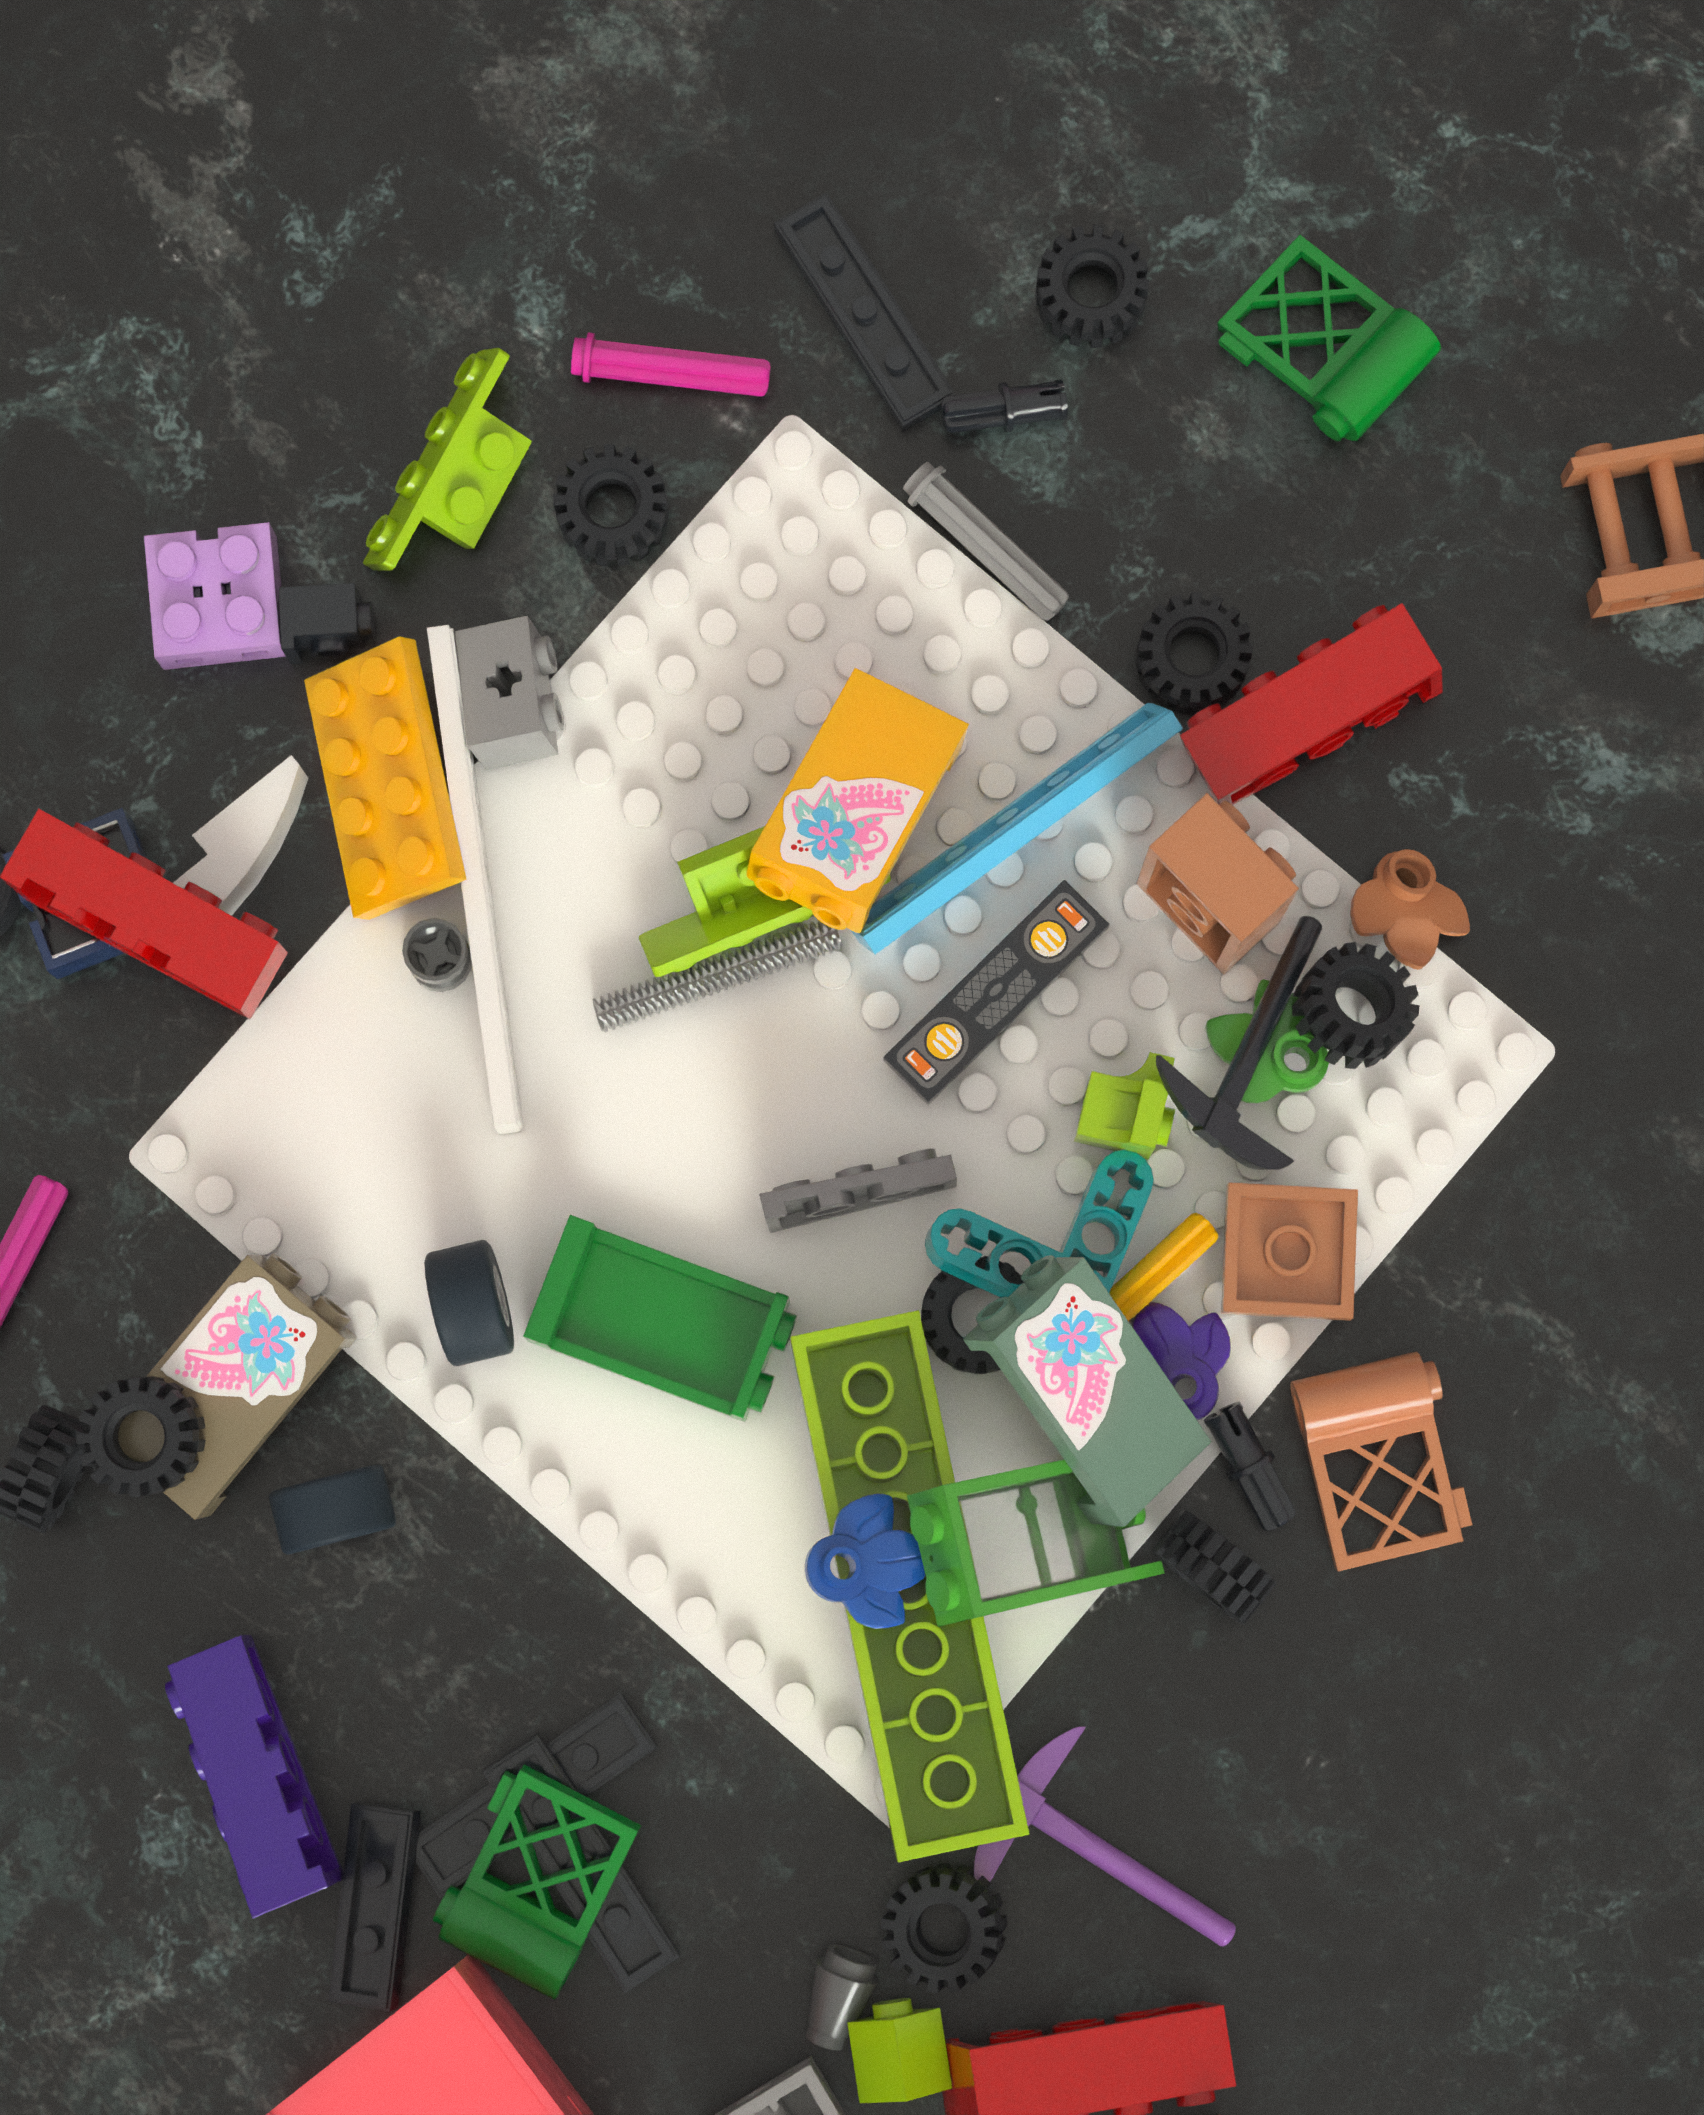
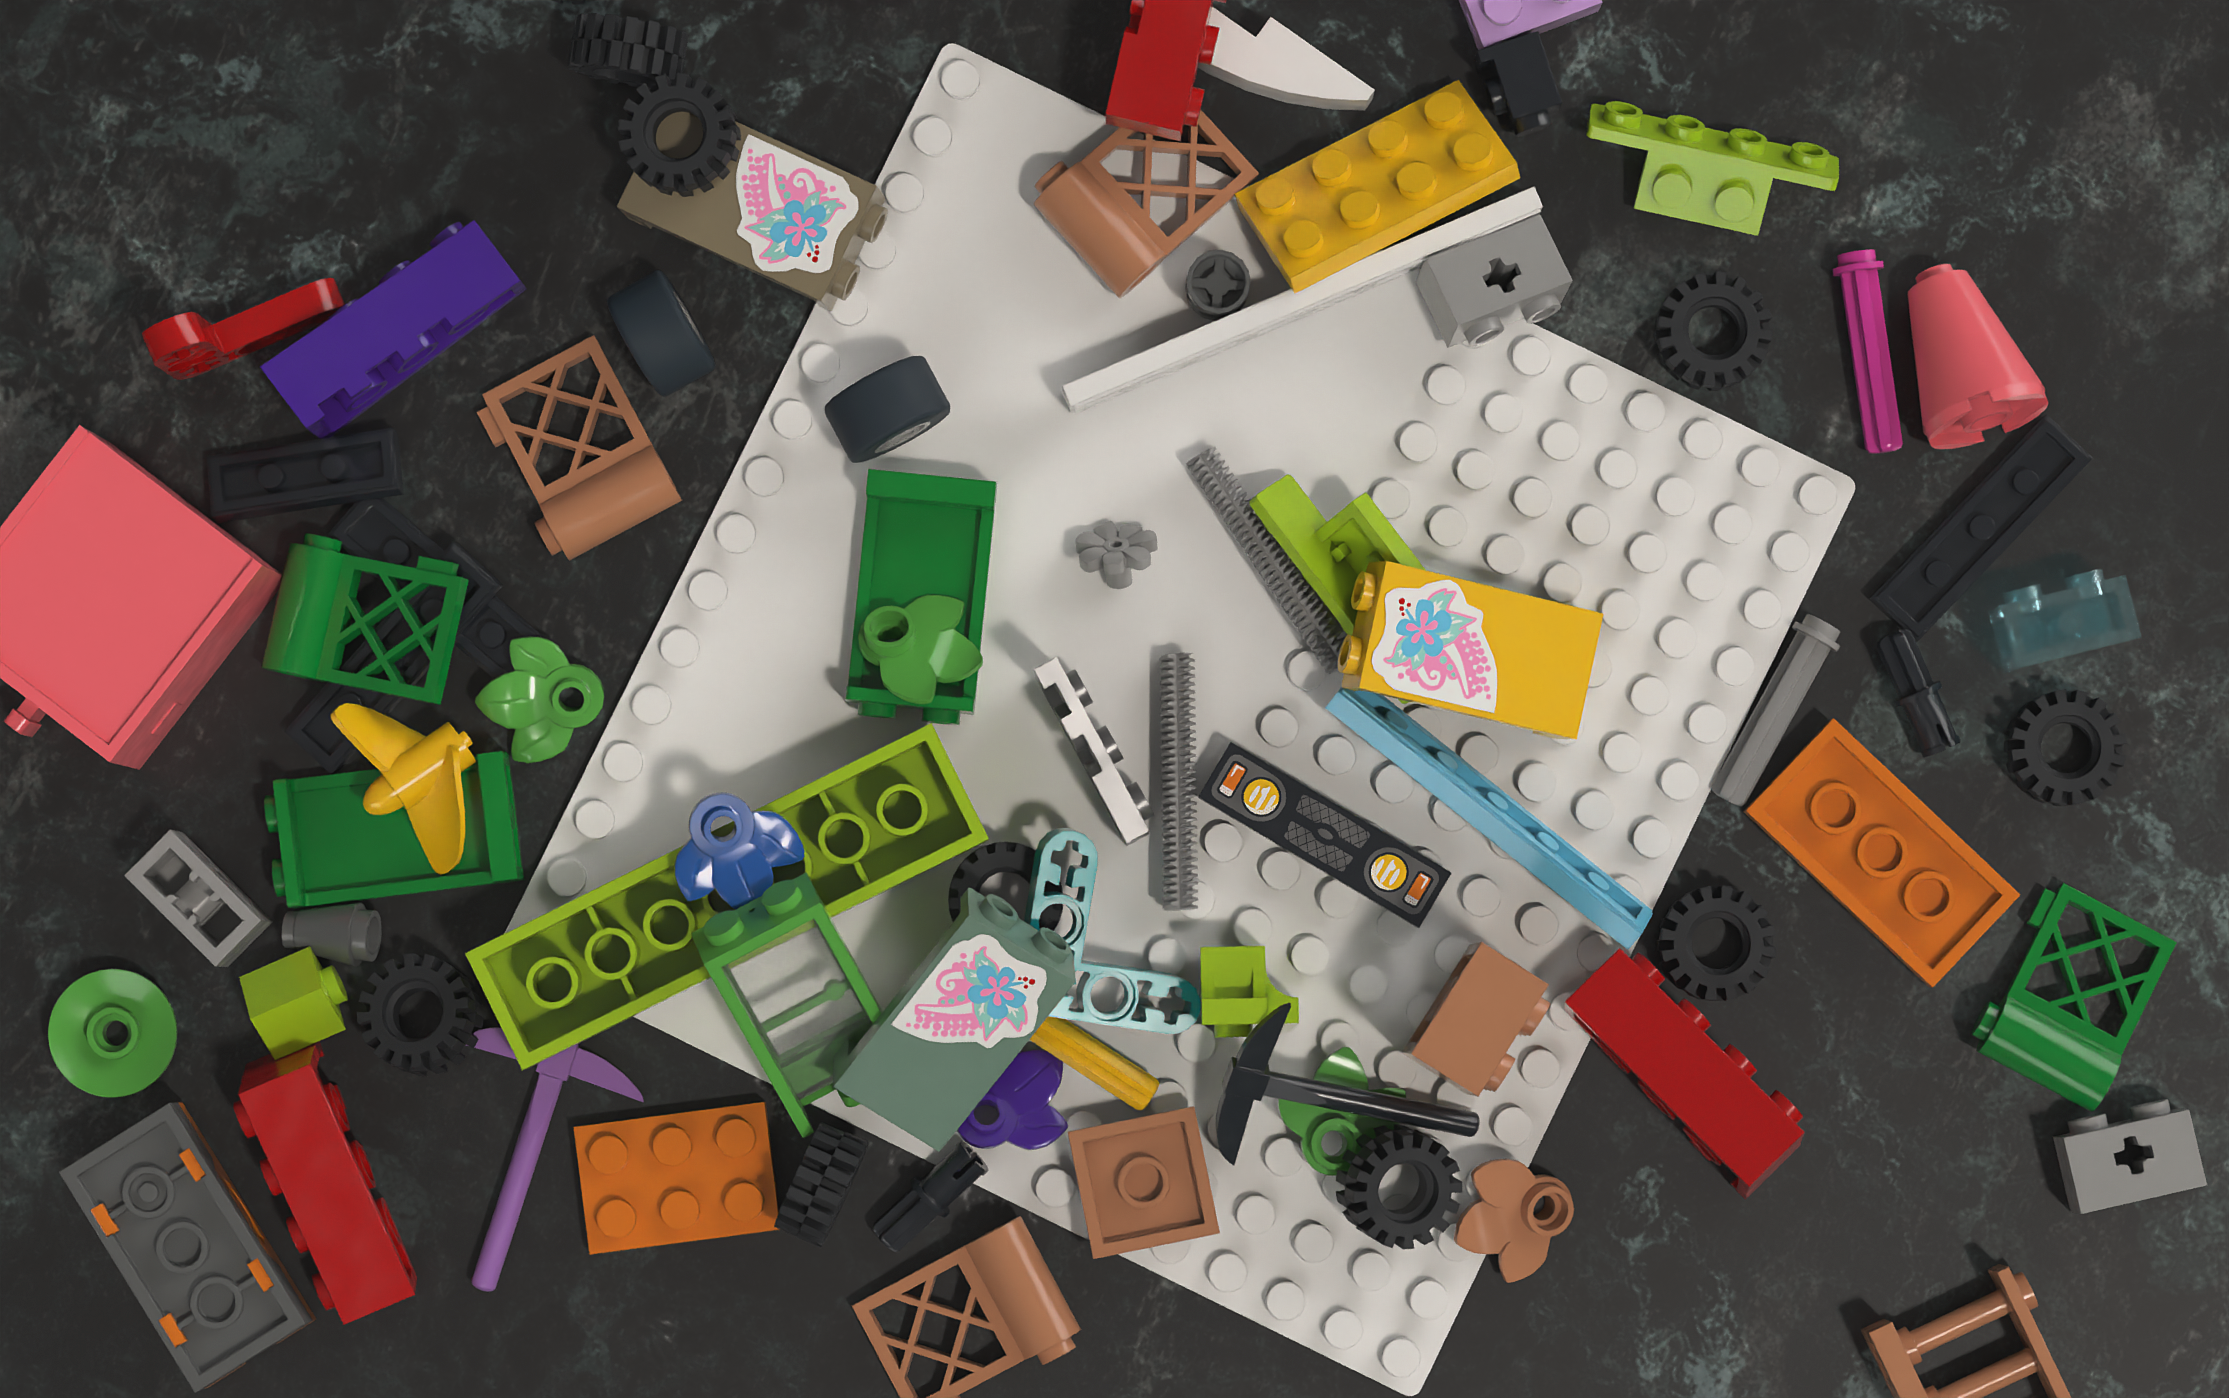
camera: 75 degrees right, 5 degrees up
(213, 1985) = (192, 346): none -> red beam
(350, 1044) = (1107, 223): none -> nougat piece
(476, 1613) = (595, 498): none -> nougat piece
(659, 1734) = (531, 699): none -> bright green plate
(668, 1119) = (1116, 551): none -> light grey plant
(705, 277) = (1966, 362): none -> coral cone
(705, 1867) = (415, 774): none -> yellow piece
(714, 1327) = (925, 647): none -> bright green plate
(753, 1907) = (346, 855): none -> green panel
(908, 1119) = (1177, 781): none -> light grey axle
(976, 252) = (2065, 623): none -> clear light blue brick
(1147, 478) = (1881, 853): none -> orange plate
(1169, 1712) = (677, 1177): none -> orange plate
(1508, 297) = (2167, 1162): none -> light grey brick

